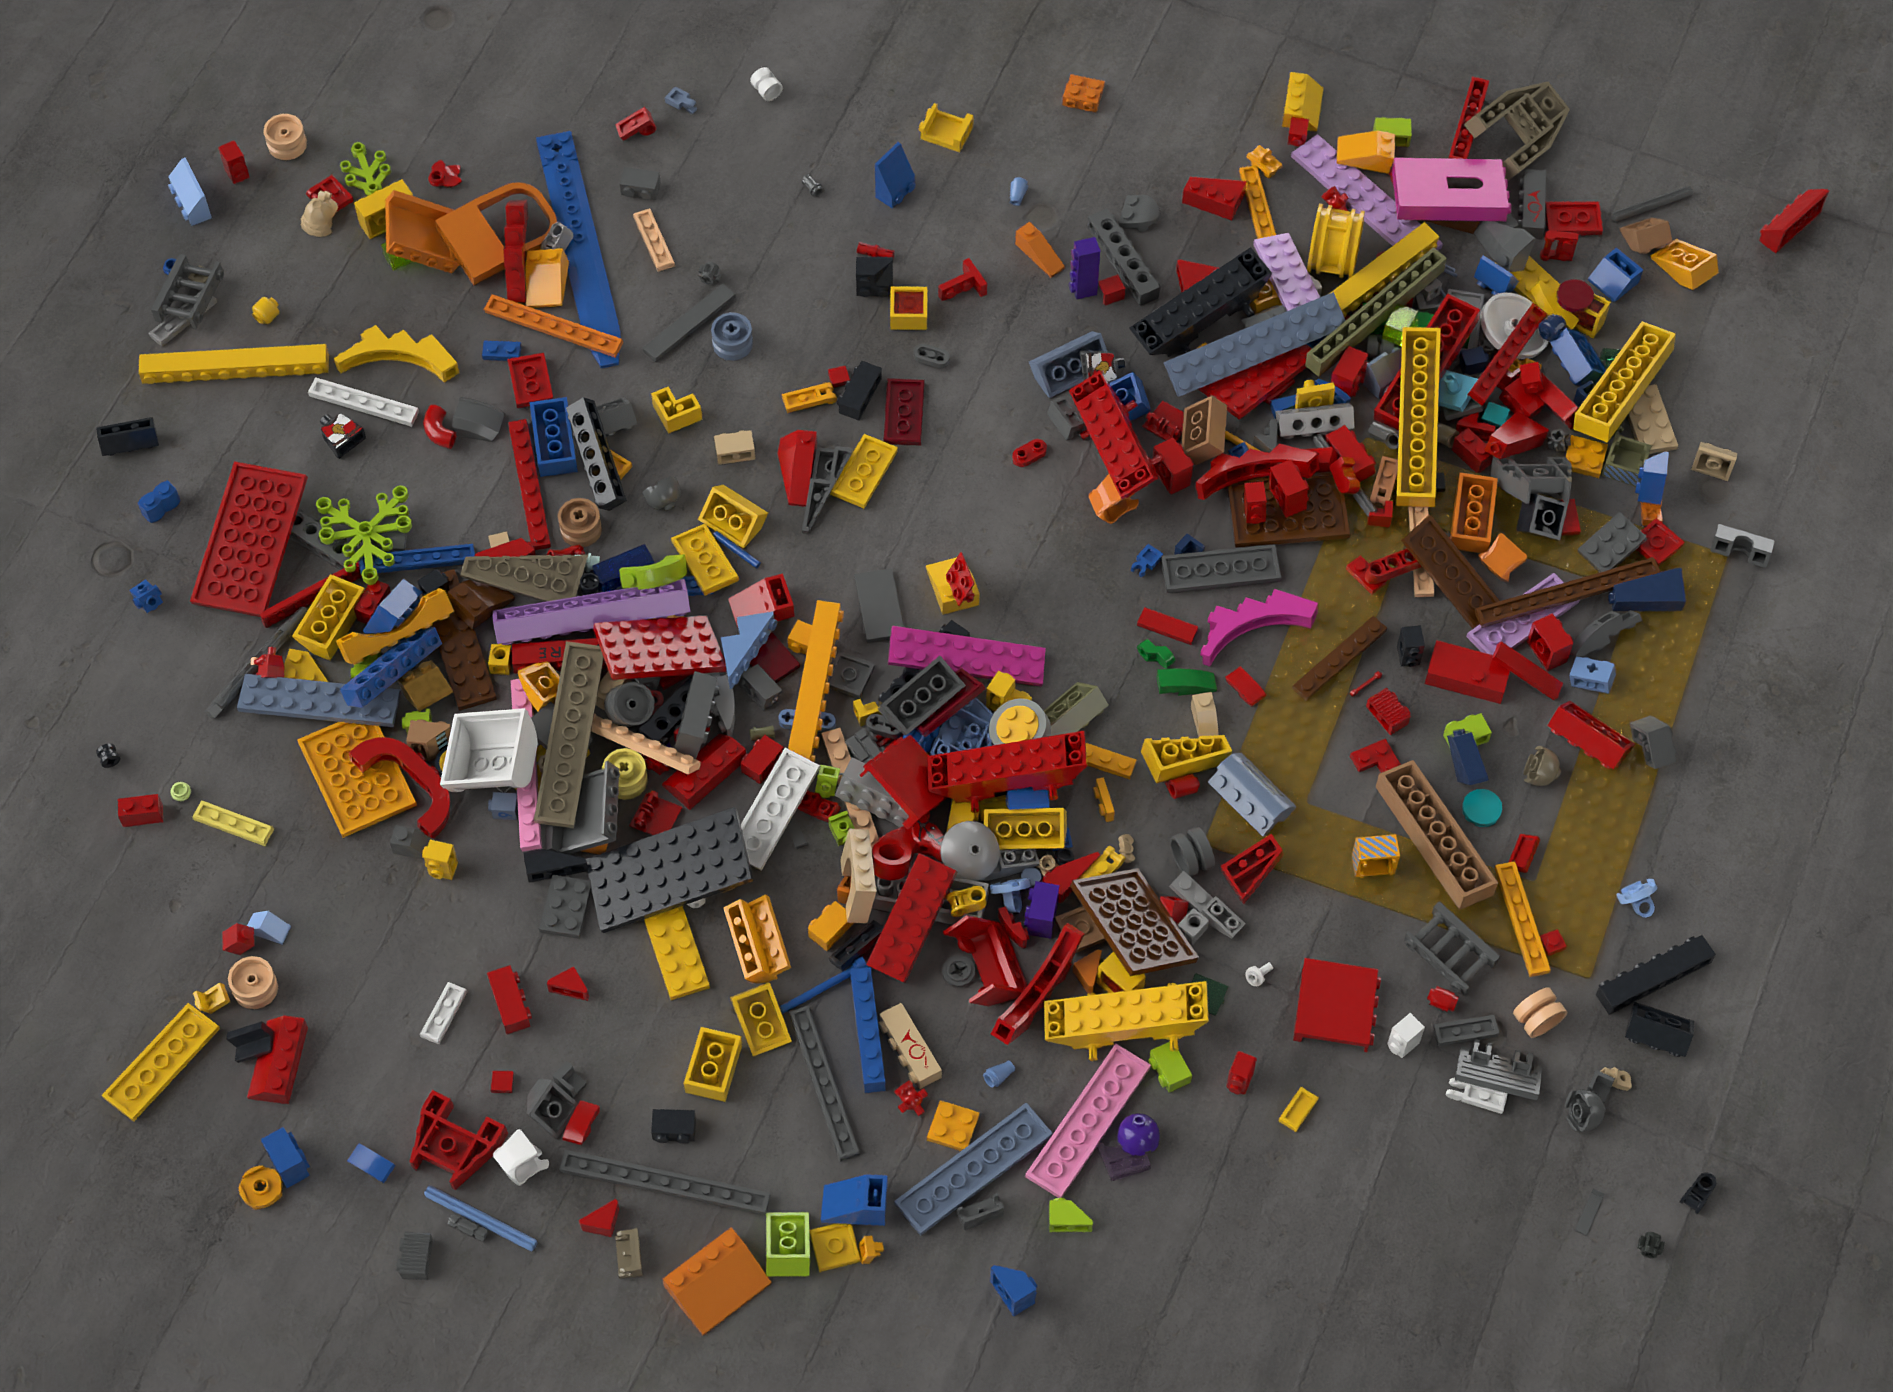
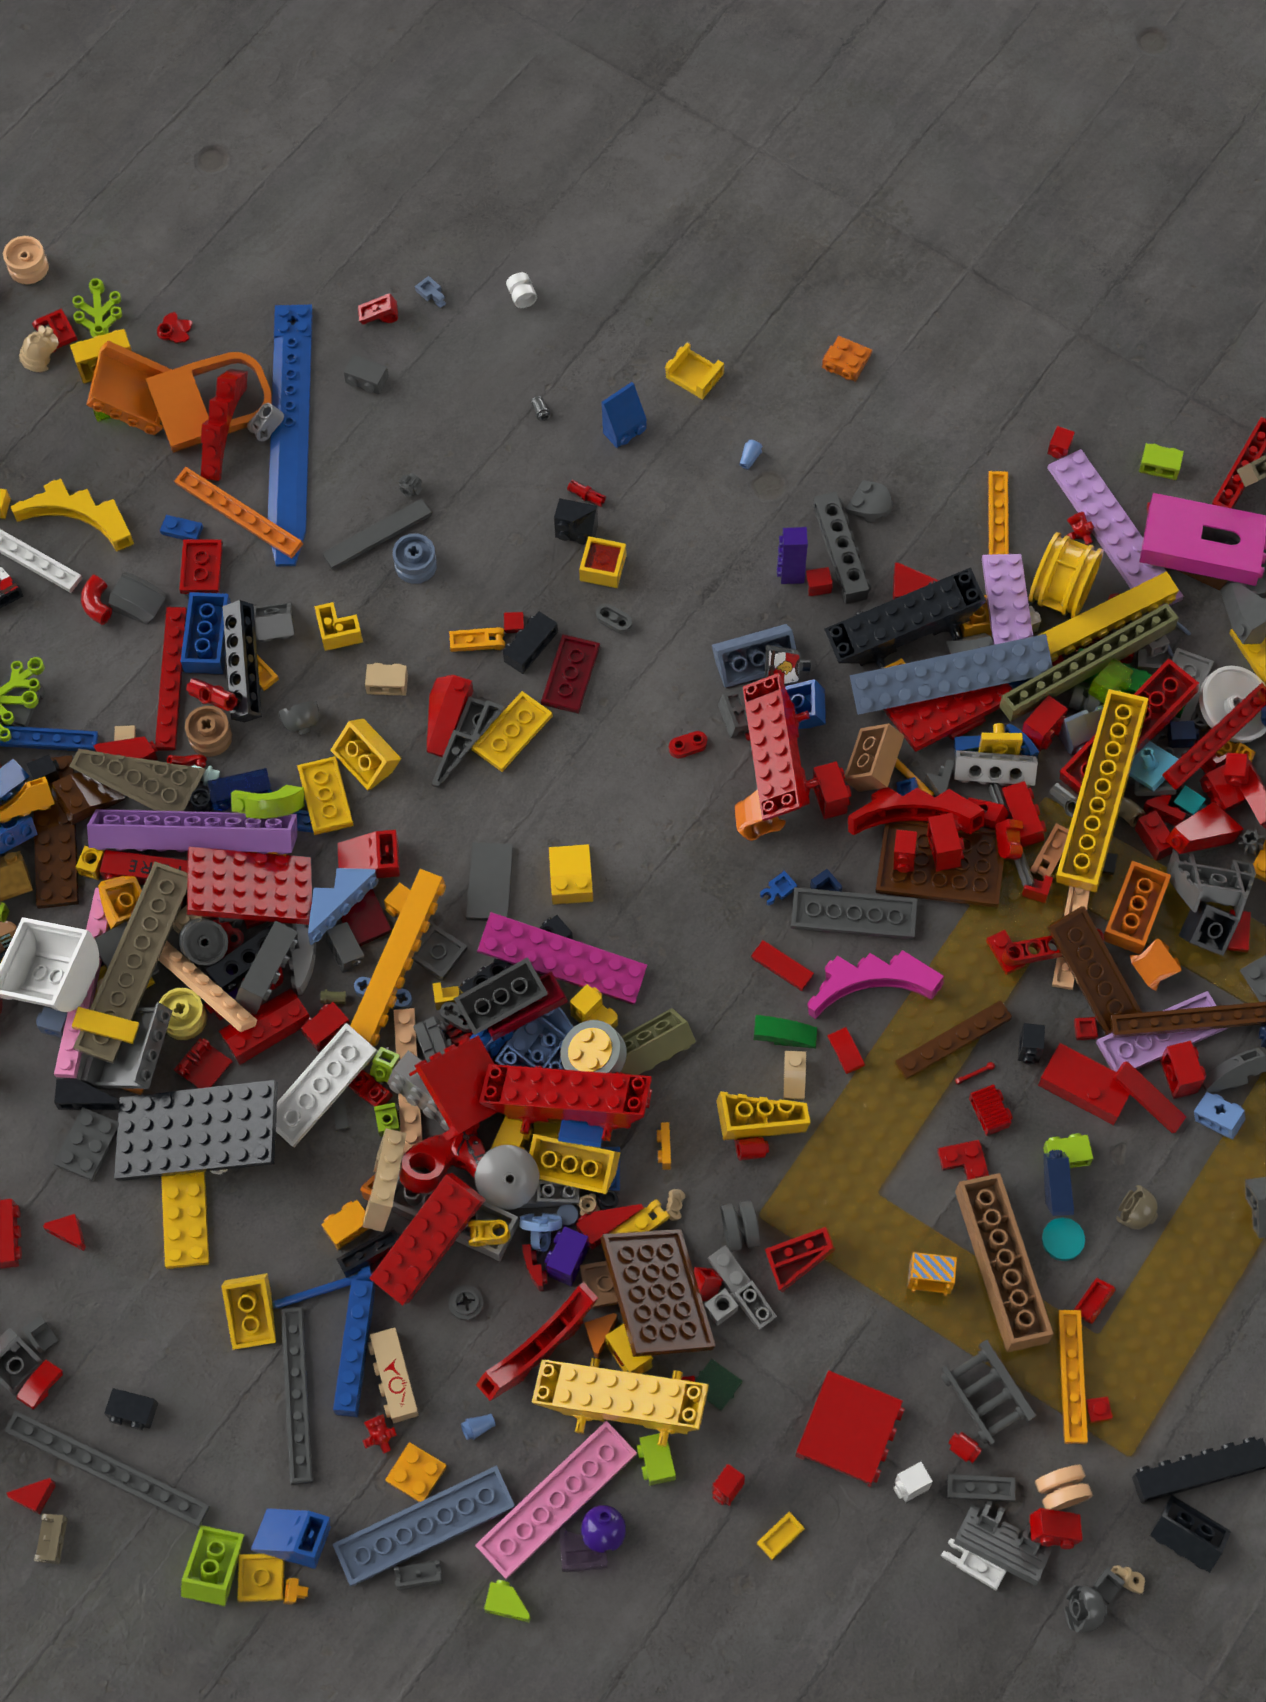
camera: 15 degrees right, 5 degrees up
(546, 277) = (244, 459): light orange slope -> none
(559, 793) = (105, 1025): none -> yellow tile
(574, 489) = (212, 694): none -> red piece
(654, 240) = (365, 437): light nougat tile -> none
(713, 1064) = (187, 1351): yellow brick -> none
(716, 1281) = (129, 1590): orange slope -> none
(736, 549) = (360, 790): blue bar -> none
(757, 939) = (267, 1224): light orange brick -> none
(960, 580) = (572, 875): red hinge -> none
(964, 282) = (667, 544): red bracket -> none
(993, 957) = (506, 1299): red windscreen -> none
(1014, 1288) = (429, 1672): blue slope -> none
(1038, 249) = (755, 523): orange slope -> none
(1110, 761) = (679, 1101): light orange plate -> none
(1156, 653) = (761, 994): green piece -> none
(1165, 421) = (838, 738): red hinge -> none
(1214, 196) = (954, 497): red wedge -> none
(1251, 793) = (819, 1173): sand blue brick -> none
(1255, 975) = (773, 1376): white plate -> none
(1264, 160) = (1016, 469): light orange hips -> none
(1303, 100) = (1075, 409): yellow slope -> none
(1367, 151) = (1127, 478): light orange slope -> none
(1454, 626) = (1085, 1028): none -> red tile
(1494, 277) = (1228, 646): blue slope -> none
(1541, 1047) = (1055, 1528): none -> red brick
(1590, 735) = (1200, 1183): red slope -> none
(1637, 894) = (1205, 1374): light blue tile -> none

